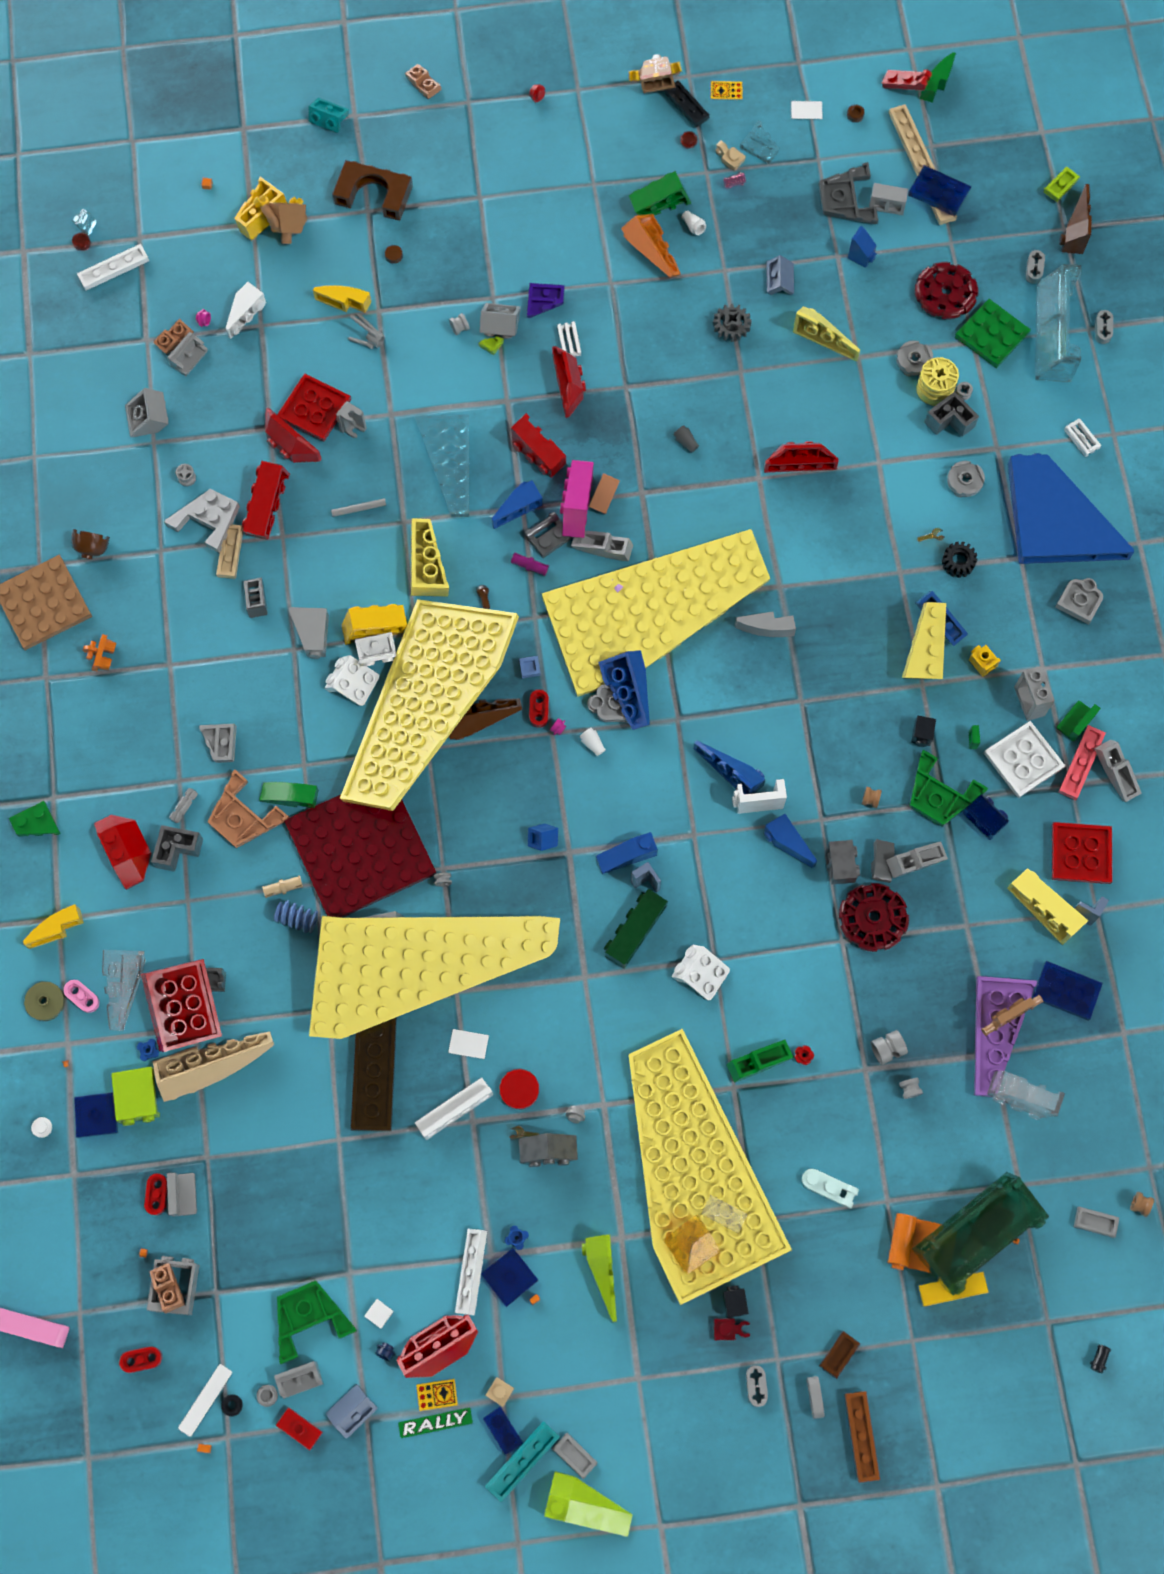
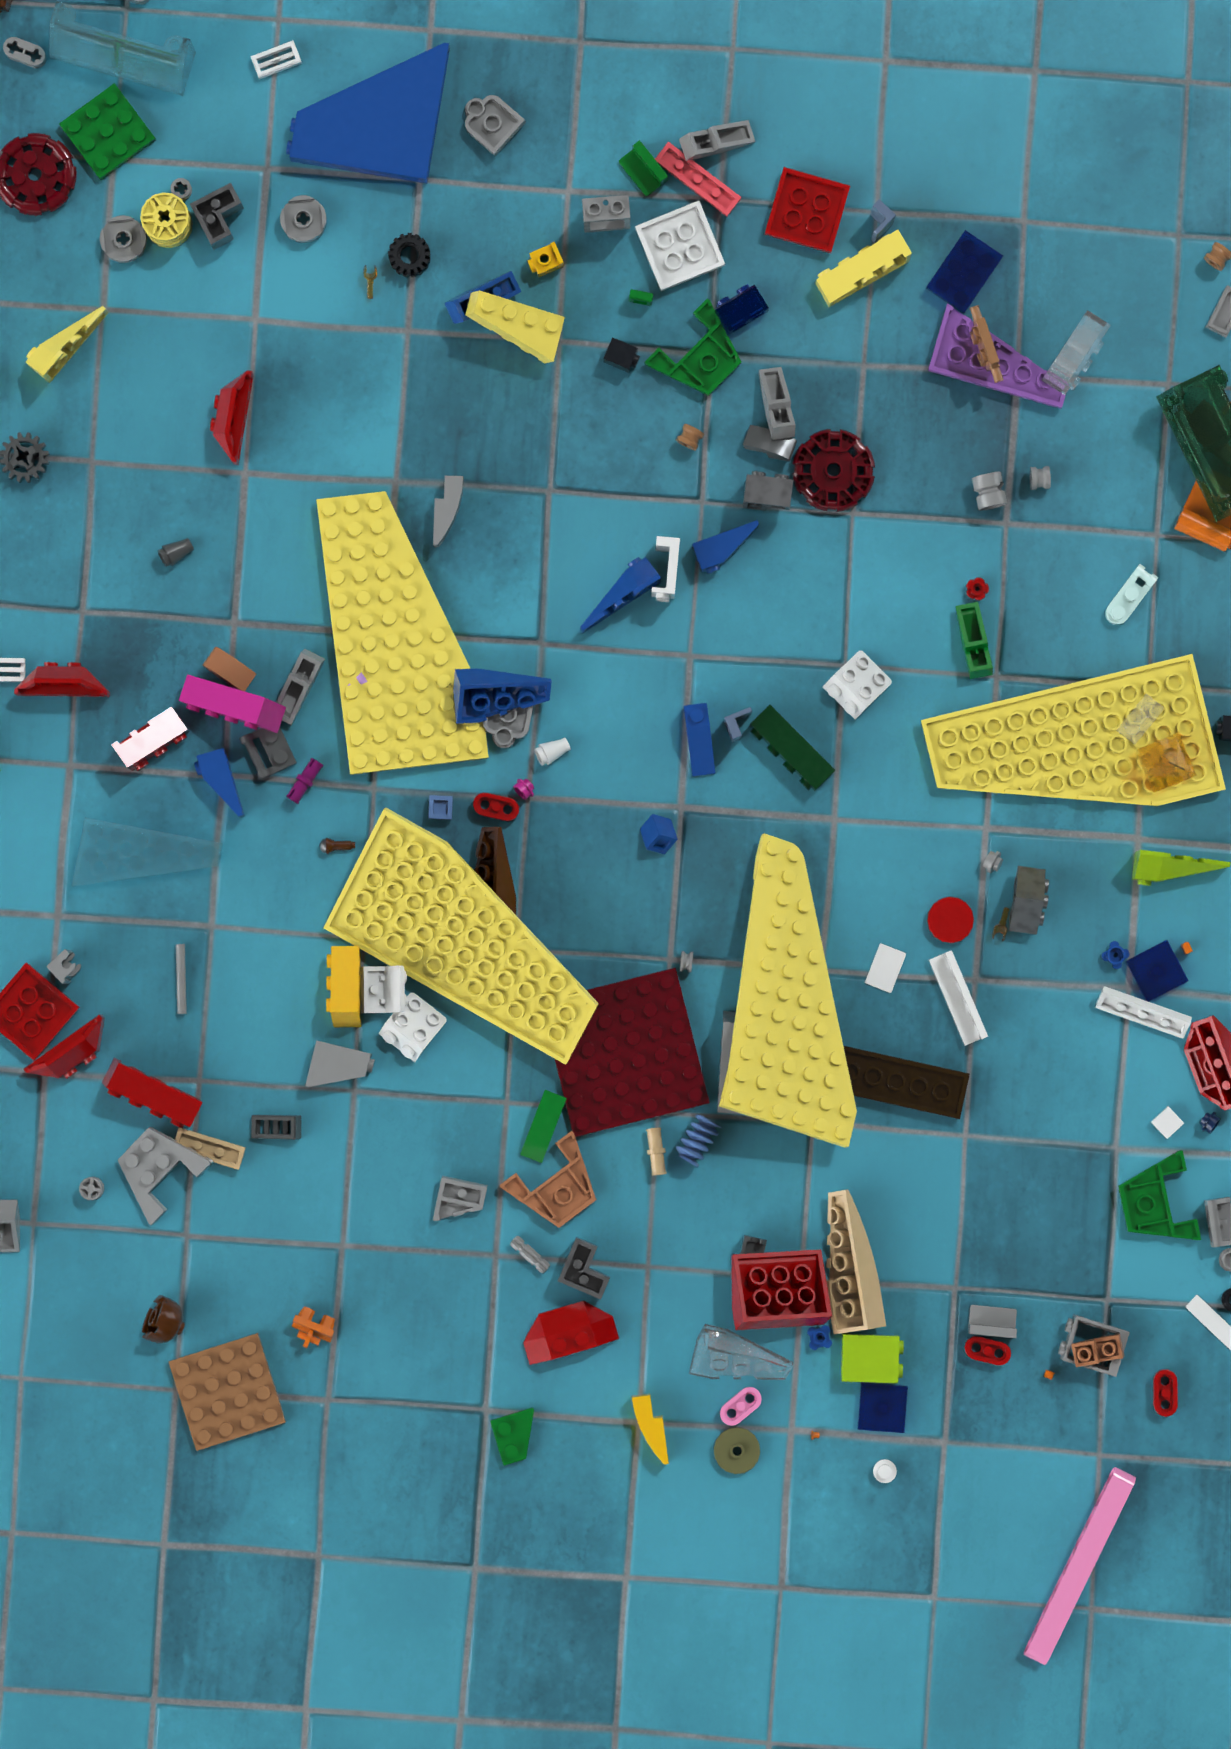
camera: 75 degrees left, 15 degrees up
(426, 566) = (284, 909): light yellow wedge -> none

